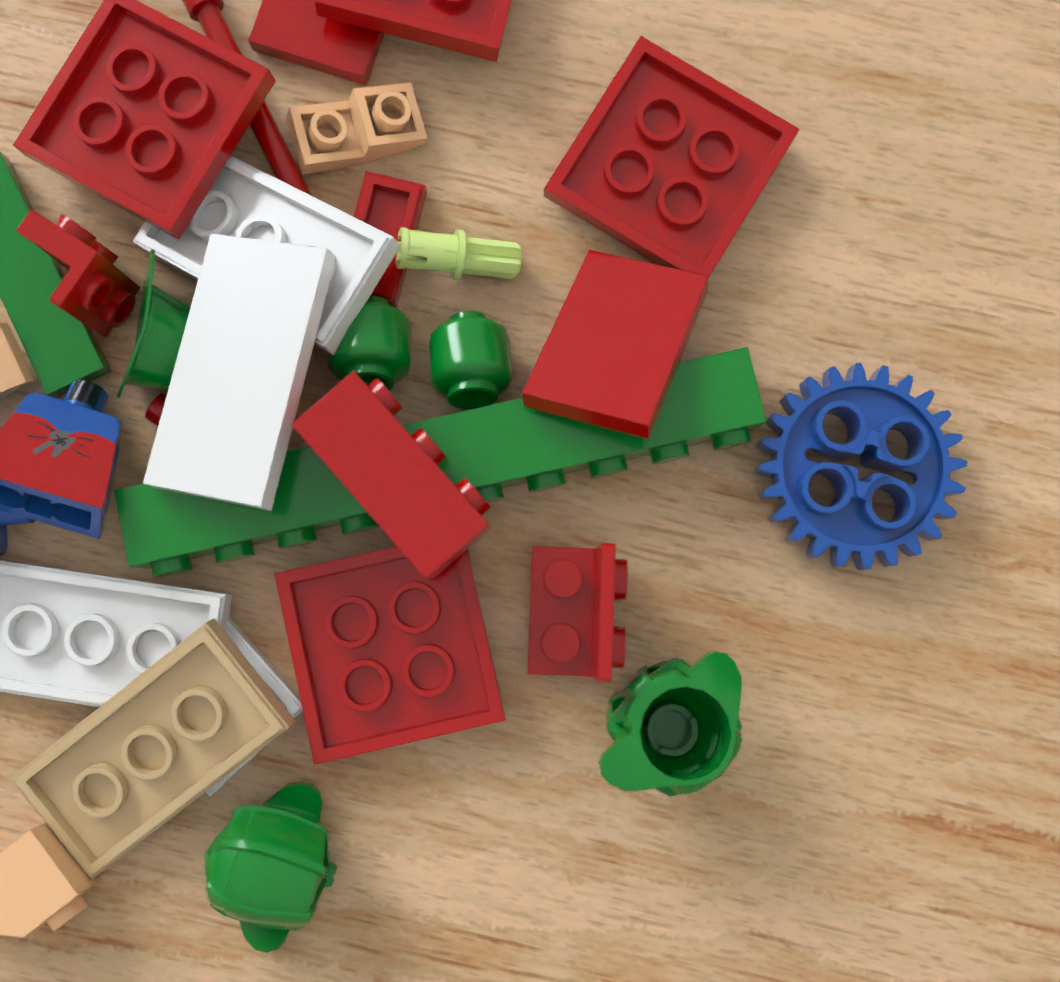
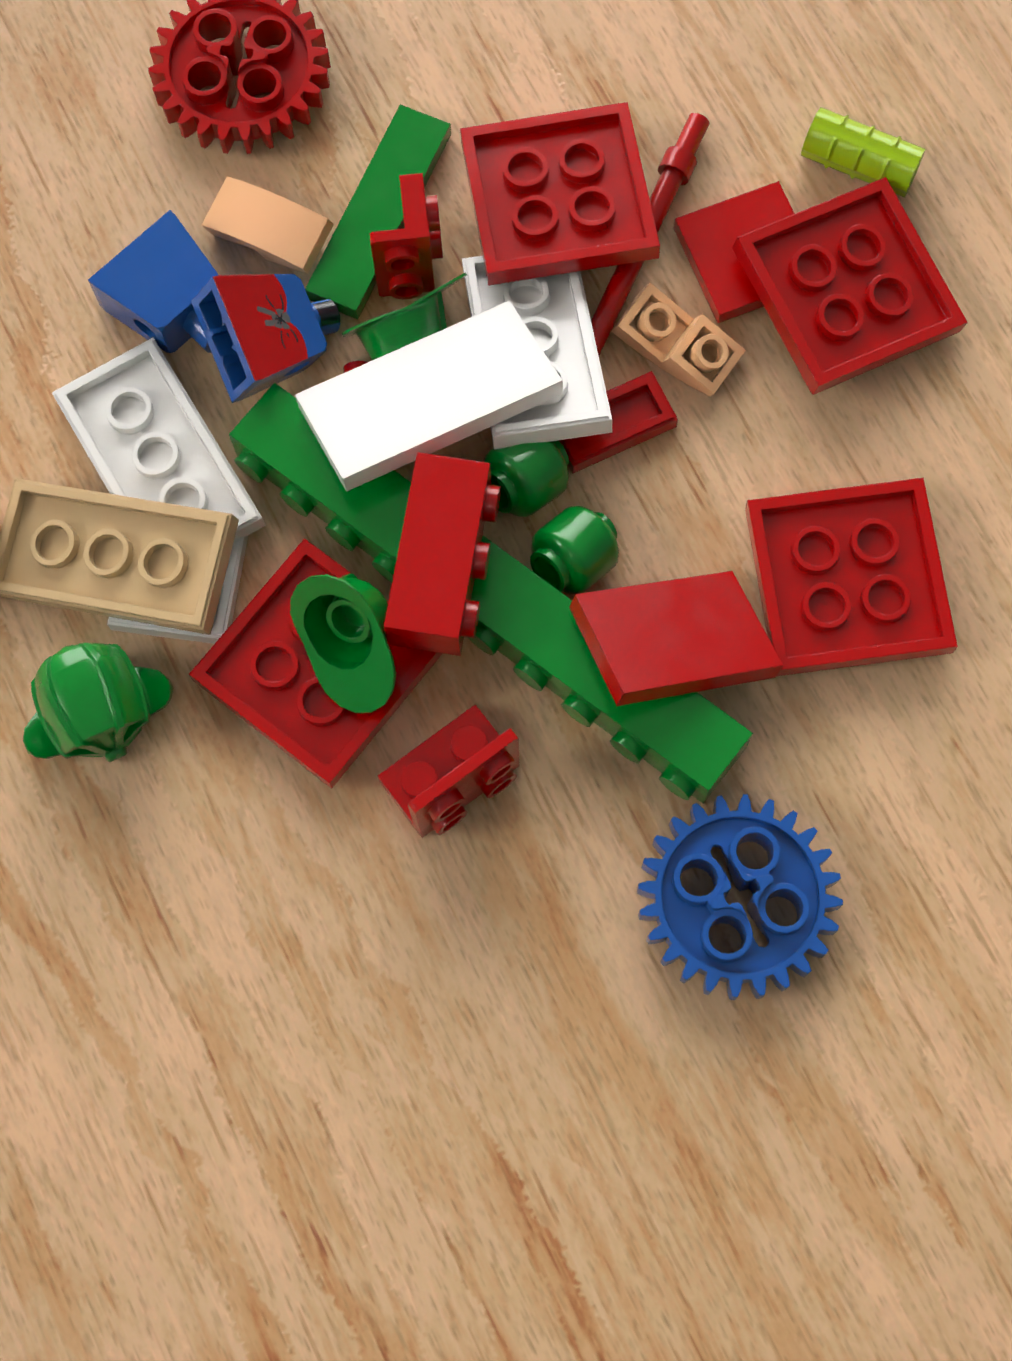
camera: 55 degrees right, 10 degrees down
(400, 613) = (345, 639): none -> green piece
(458, 254) = (645, 481): yellowish green axle -> none
(674, 726) = (423, 900): green piece -> none

